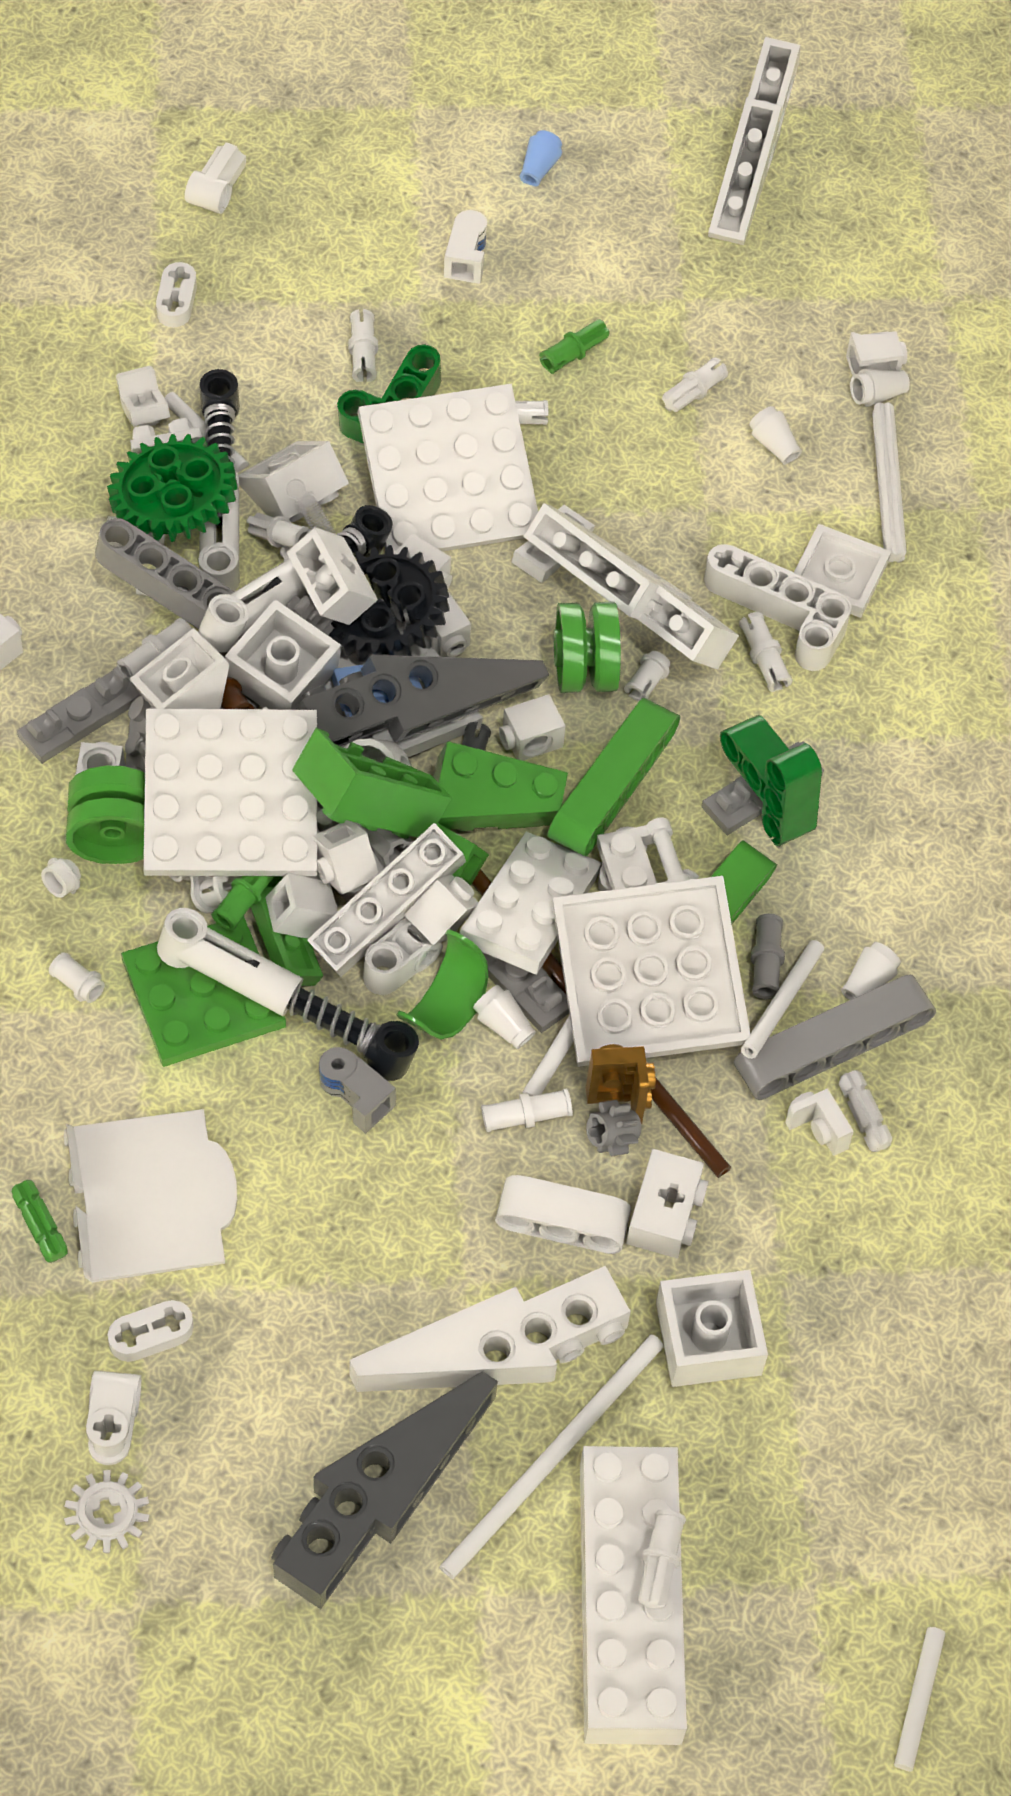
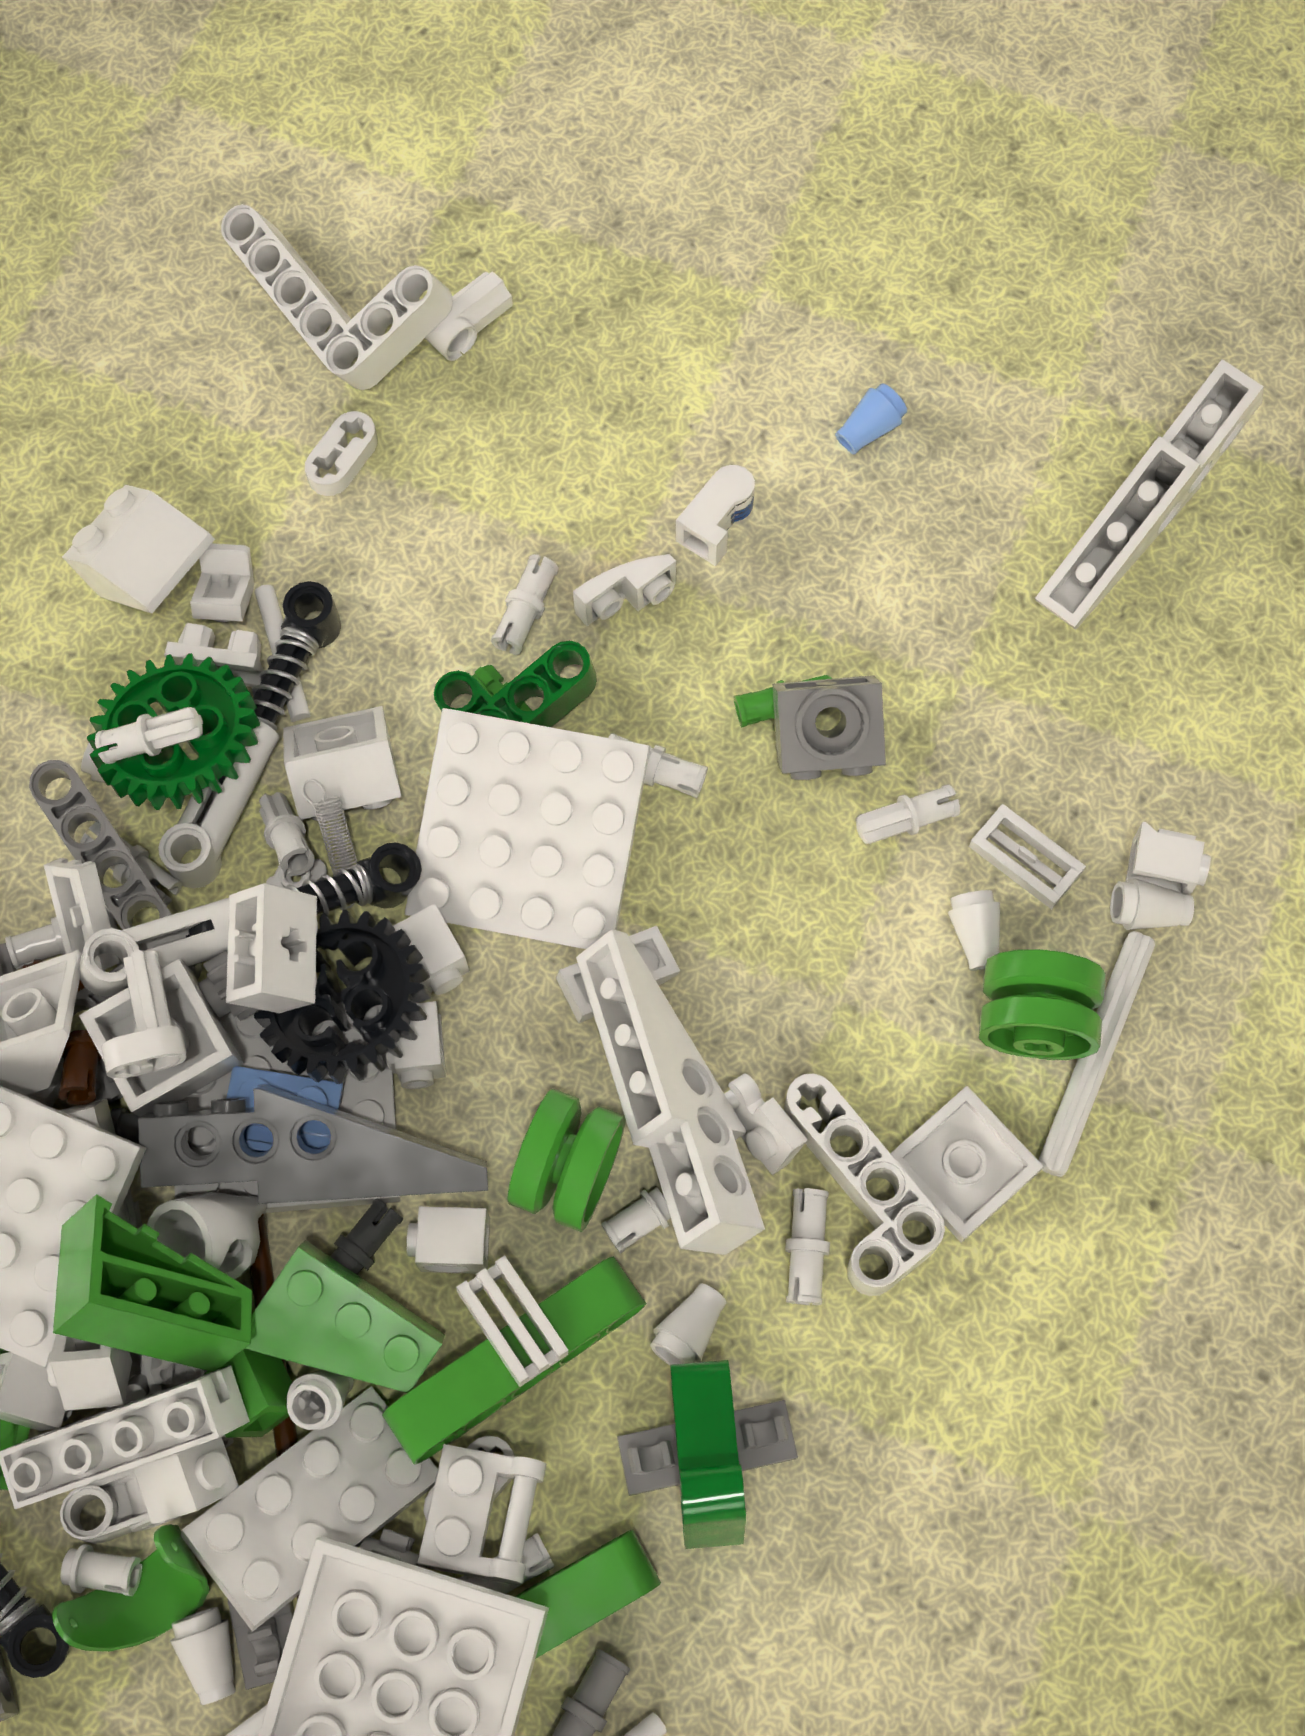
camera: 30 degrees right, 10 degrees up
(72, 392) = (137, 549): none -> white slope
(114, 203) = (264, 246): none -> white beam
(170, 481) = (149, 734): none -> white axle
(178, 604) = (78, 905): none -> white tile
(289, 647) = (156, 1042): none -> white piece
(407, 998) = (100, 1571): none -> white pin
(430, 308) = (637, 581): none -> white slope
(504, 826) = (317, 1399): none -> white cone
(609, 739) = (486, 1280): none -> white tile
(638, 345) = (850, 746): none -> light grey brick
(706, 589) = (769, 1130): none -> white plate
(712, 721) = (687, 1330): none -> white cone
(782, 391) = (1015, 871): none -> white tile
(843, 455) = (1042, 1004): none -> bright green wheel

